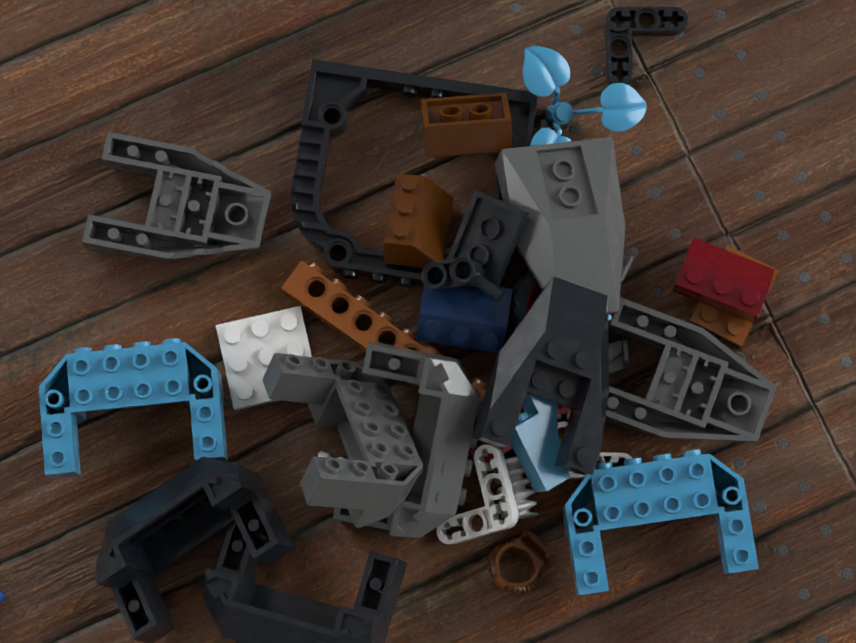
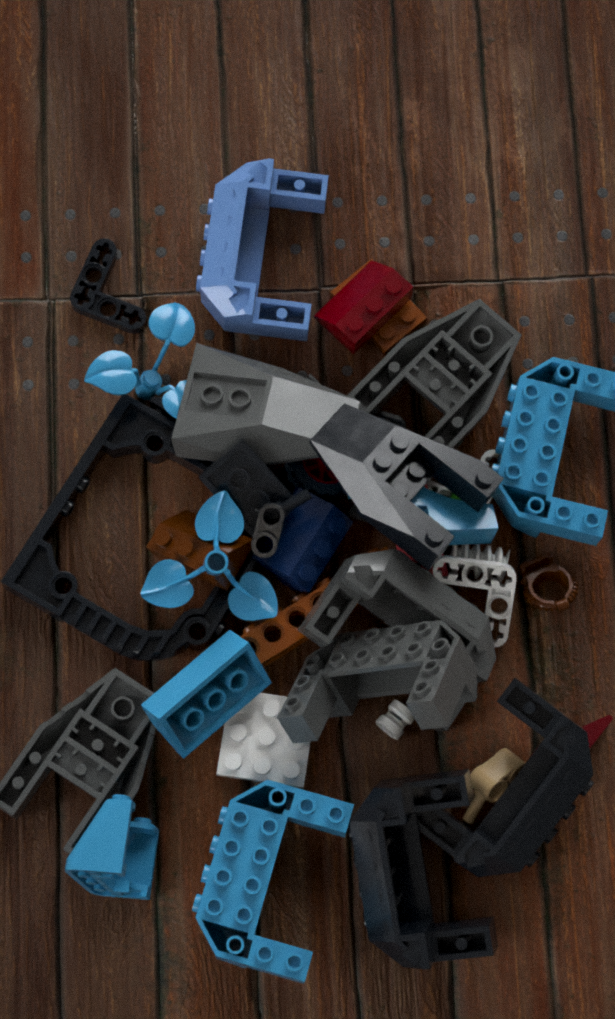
camera: 75 degrees left, 5 degrees down
(100, 261) = (115, 853): none -> dark azure windscreen
(277, 282) = (207, 693): none -> dark azure slope
(307, 577) = (491, 780): none -> tan beam
(441, 228) = (223, 522): none -> dark azure plant
(466, 125) = (129, 464): reddish brown slope -> none
(732, 138) = (237, 248): none -> medium blue wedge

